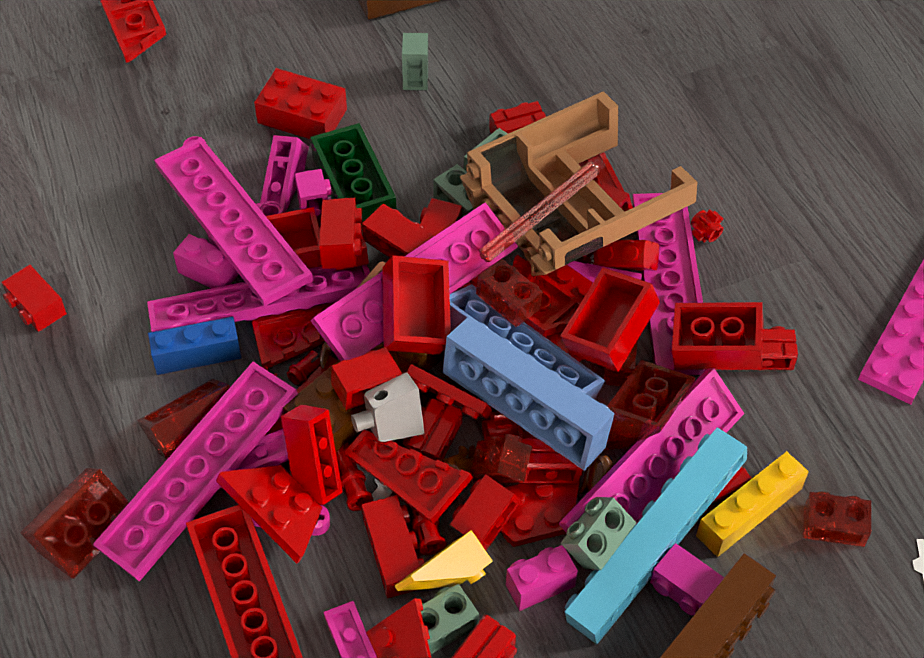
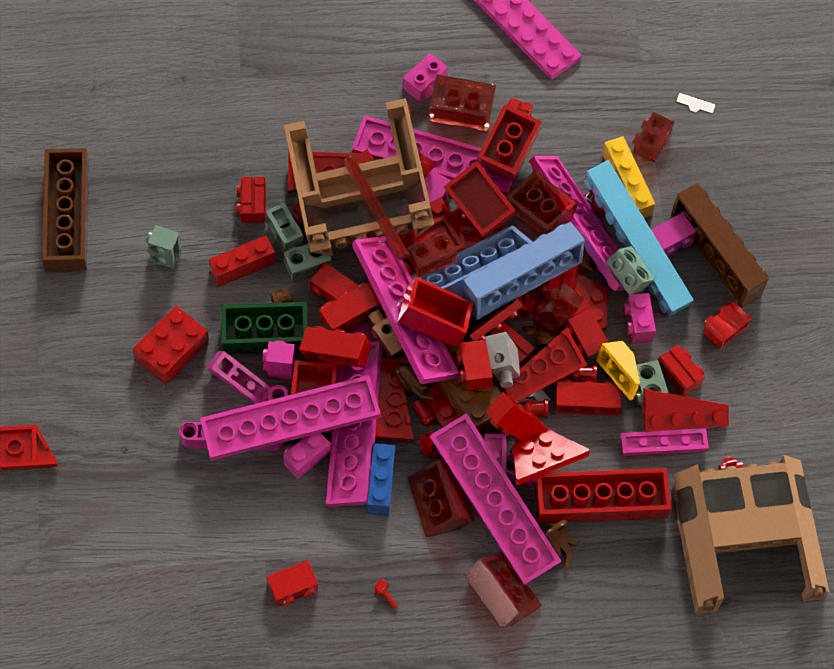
camera: 75 degrees left, 10 degrees up
(50, 390) = (381, 588): none -> red hand
(170, 573) = (559, 539): none -> reddish brown piece
(402, 185) = (281, 296): none -> reddish brown wheel
(432, 135) = (242, 261): none -> red brick
(758, 273) = (462, 102): none -> clear red slope
(774, 238) = (422, 77): none -> dark pink brick

